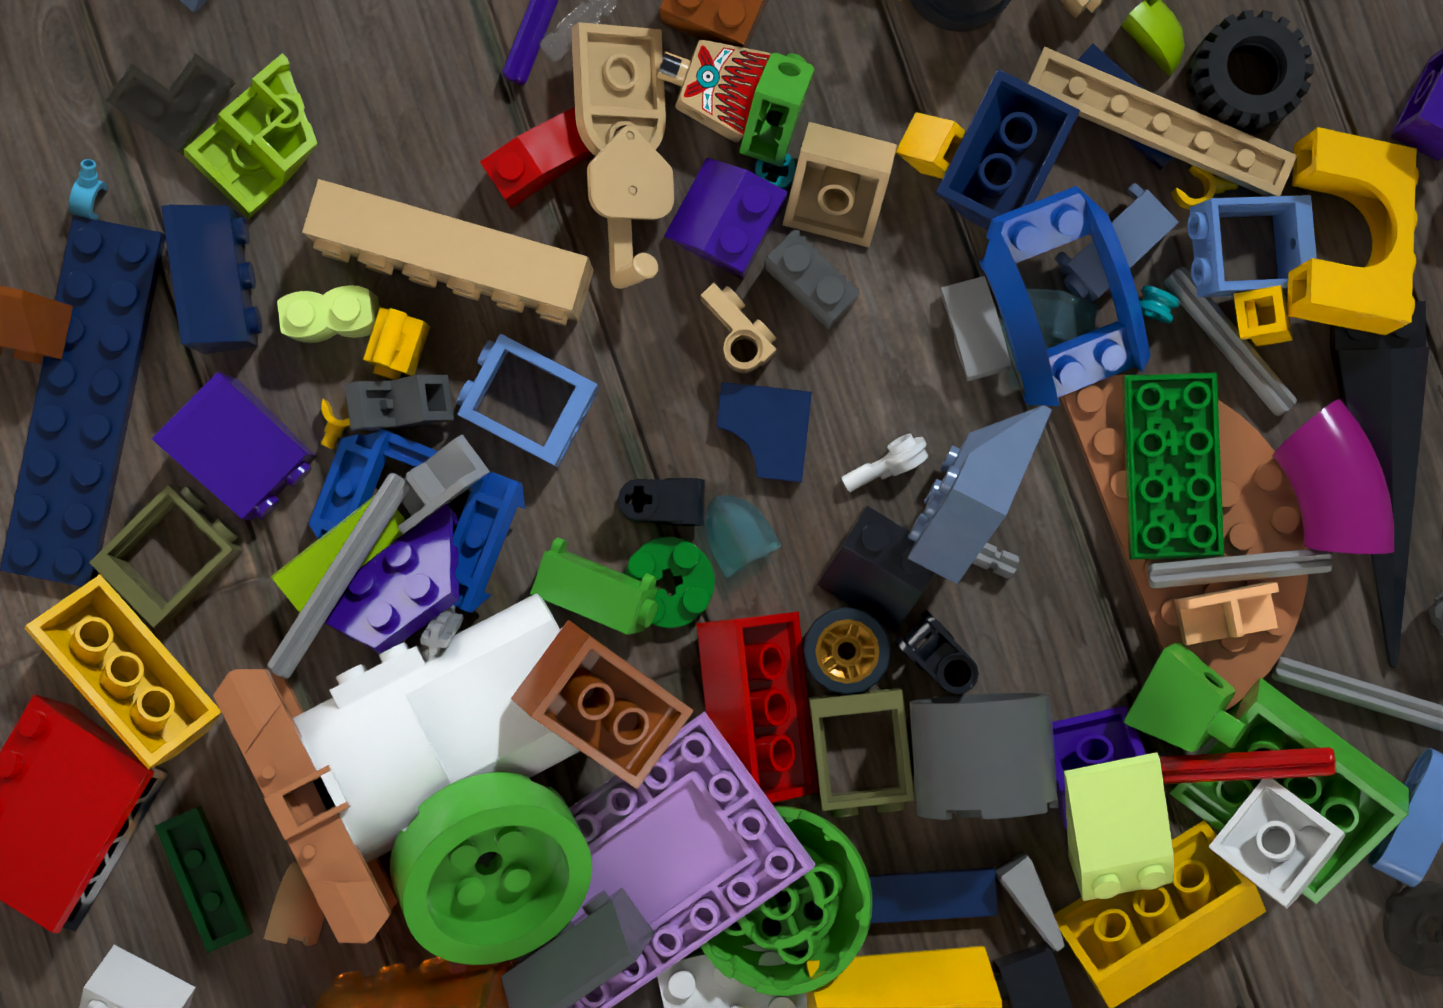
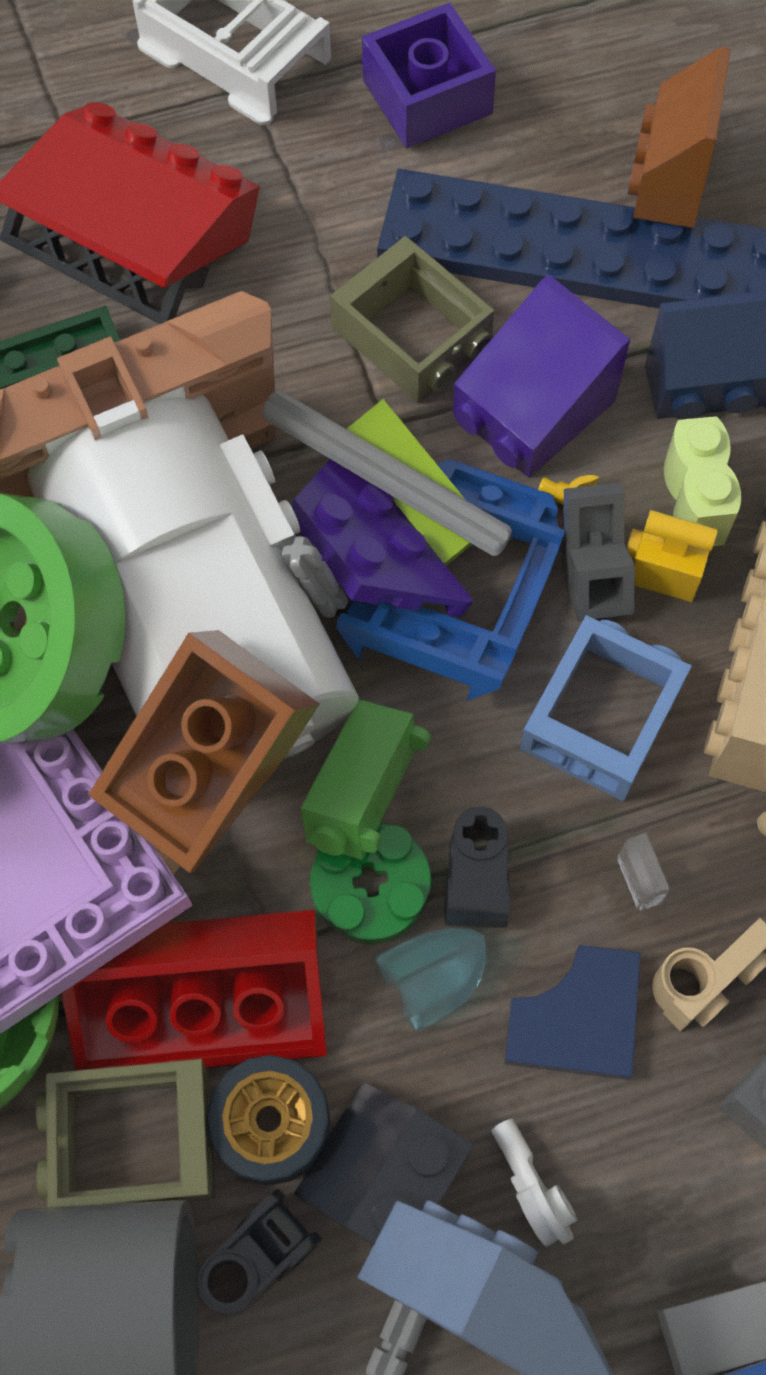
camera: 85 degrees right, 20 degrees down
(124, 672) = (285, 248): yellow slope -> none
(441, 480) = (502, 590): light grey panel -> none
(661, 377) = (642, 872): none -> clear tile

